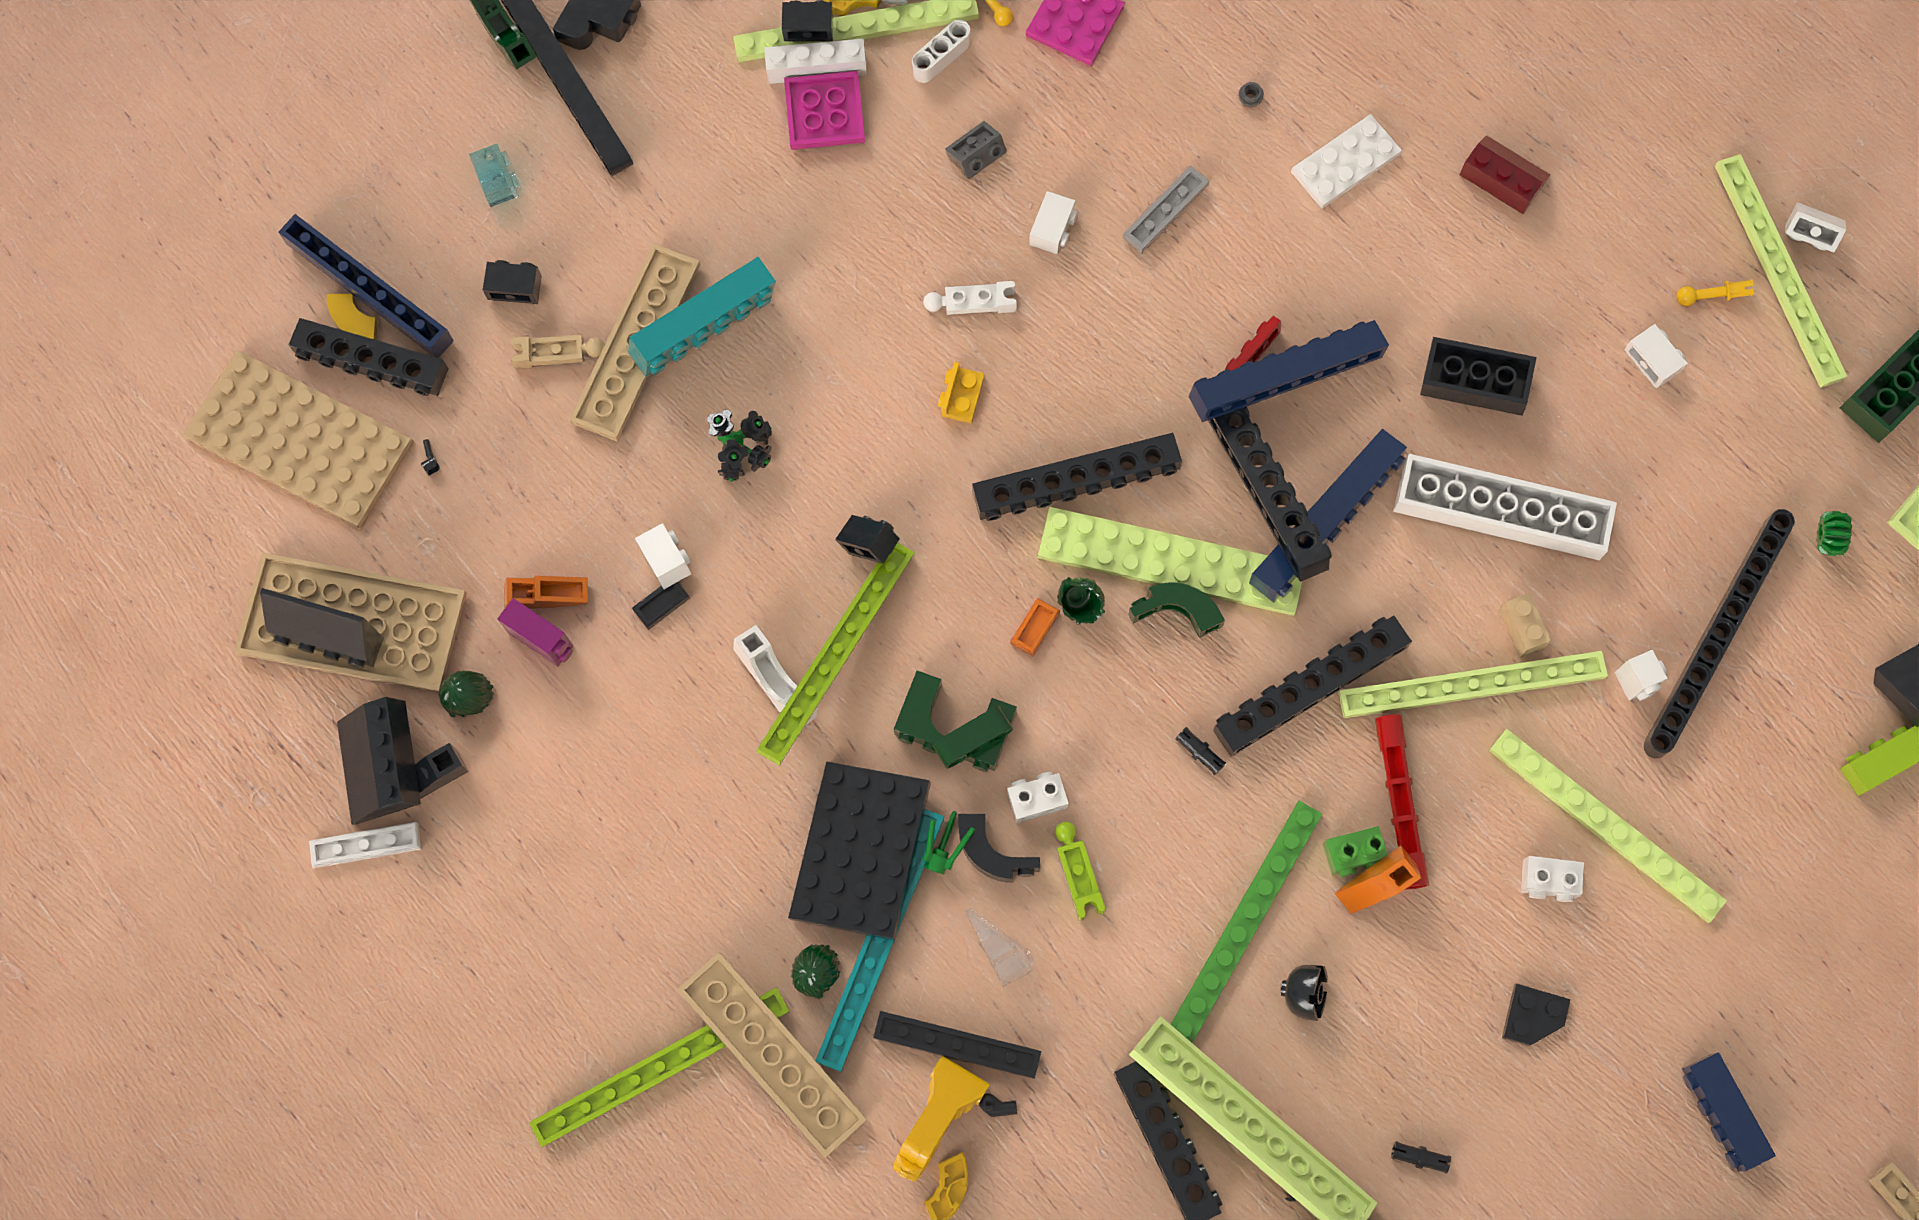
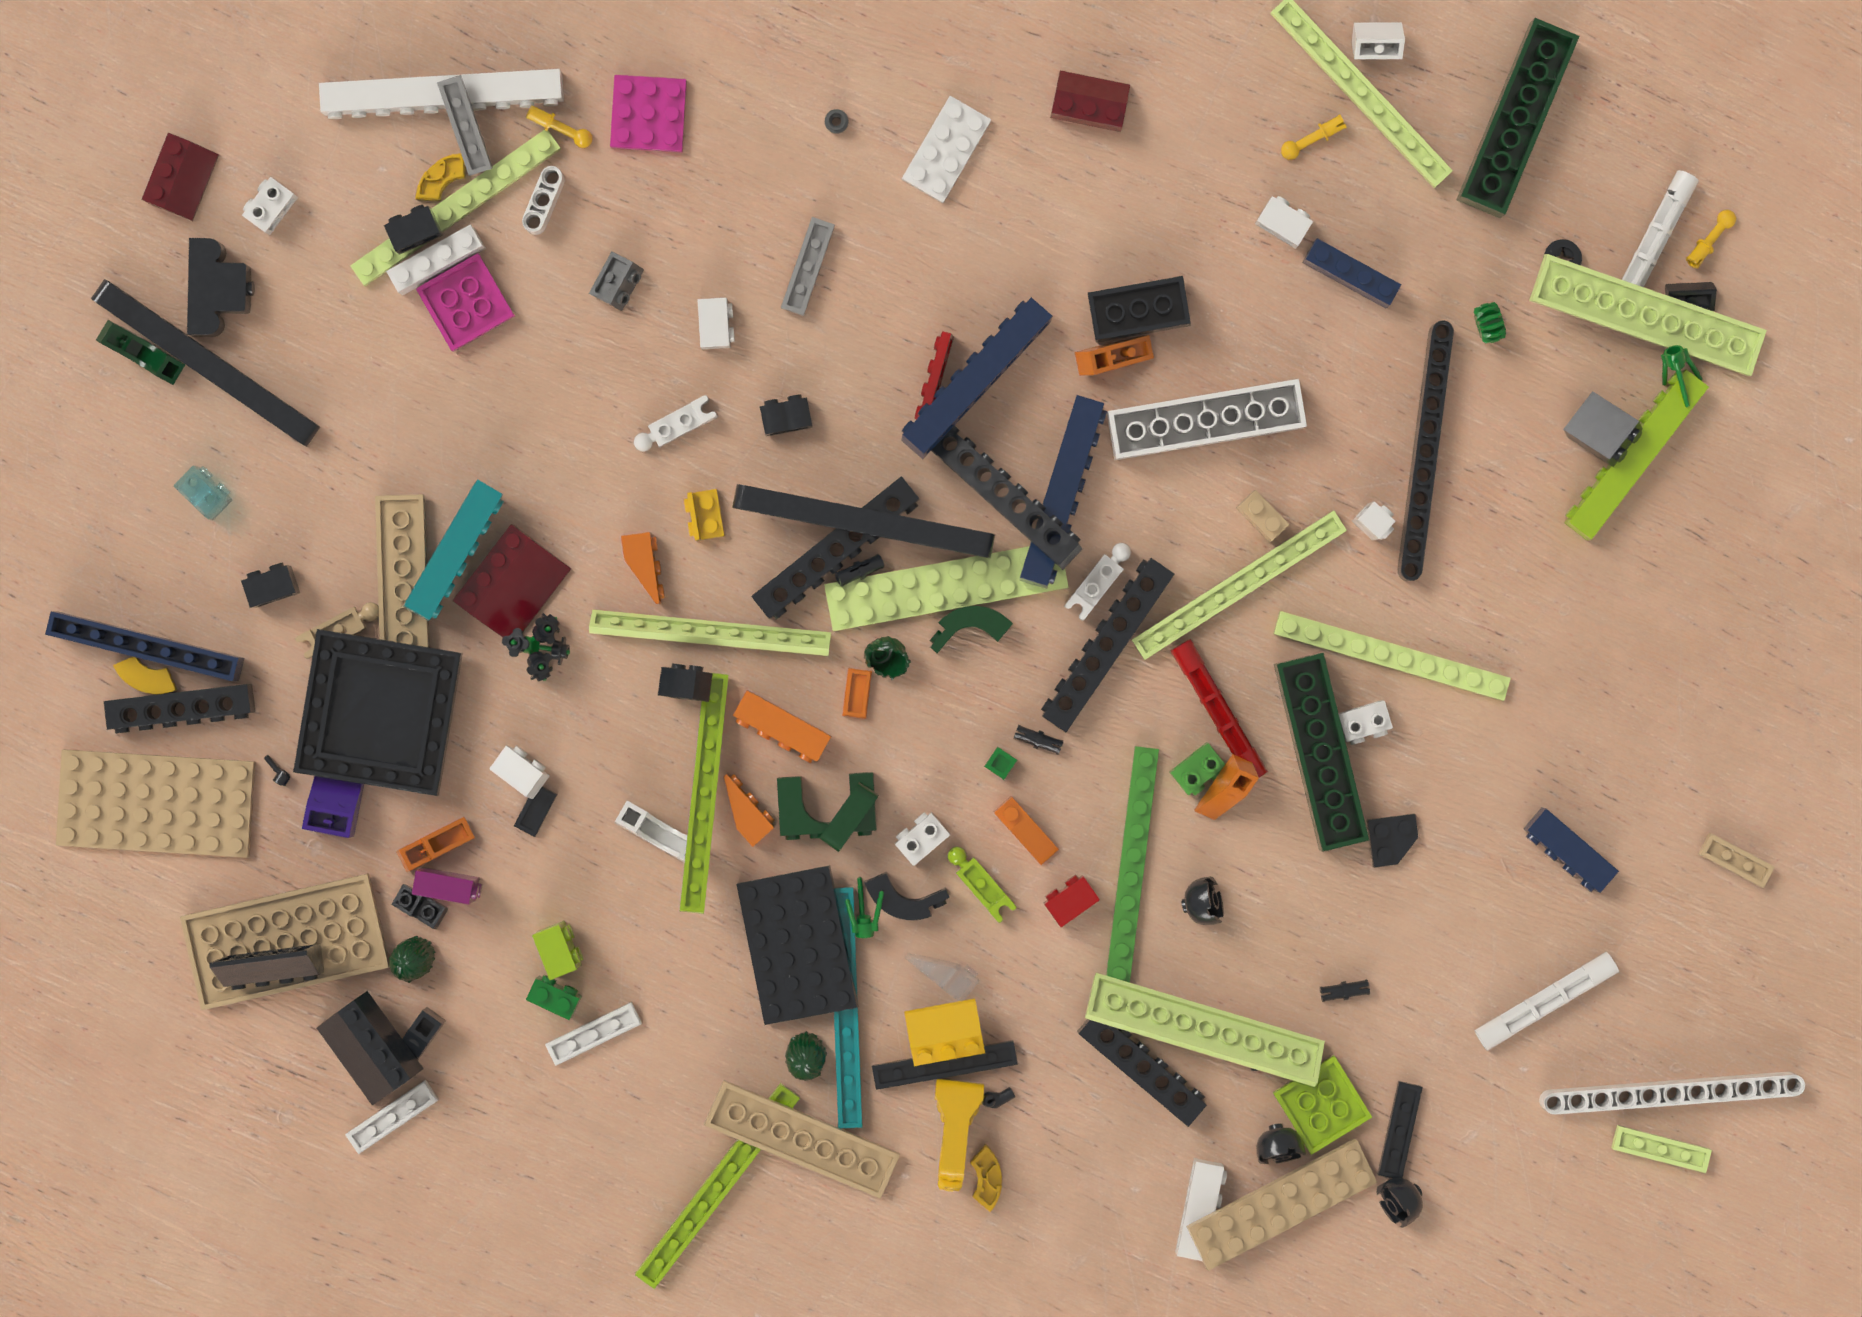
camera: 30 degrees left, 15 degrees up
(470, 505) = (333, 807): none -> dark purple slope
(500, 646) = (420, 907): none -> black slope
(554, 438) = (377, 712): none -> black tile
(585, 791) = (554, 997): none -> green brick
(609, 851) = (593, 1033): none -> white tile
(614, 744) = (558, 949): none -> lime brick
(744, 374) = (512, 583): none -> dark red slope
(869, 700) = (748, 817): none -> orange slope
(880, 403) = (640, 557): none -> orange slope
(916, 505) = (710, 632): none -> yellowish green plate
(945, 624) = (782, 726): none -> orange brick
(972, 1006) = (944, 1032): none -> yellow slope
(1083, 334) = (786, 415): none -> black brick
(1091, 507) = (859, 570): none -> black pin
(1119, 456) = (863, 521): none -> black beam
(1148, 835) = (1025, 830): none -> orange slope
(1151, 757) = (1000, 763): none -> green plate
(1165, 928) = (1070, 900): none -> red brick
(1328, 620) = (1099, 580): none -> white plate
(1433, 410) = (1114, 355): none -> orange slope
(1495, 888) = (1321, 752): none -> dark green brick
(1707, 430) = (1351, 273): none -> dark blue brick

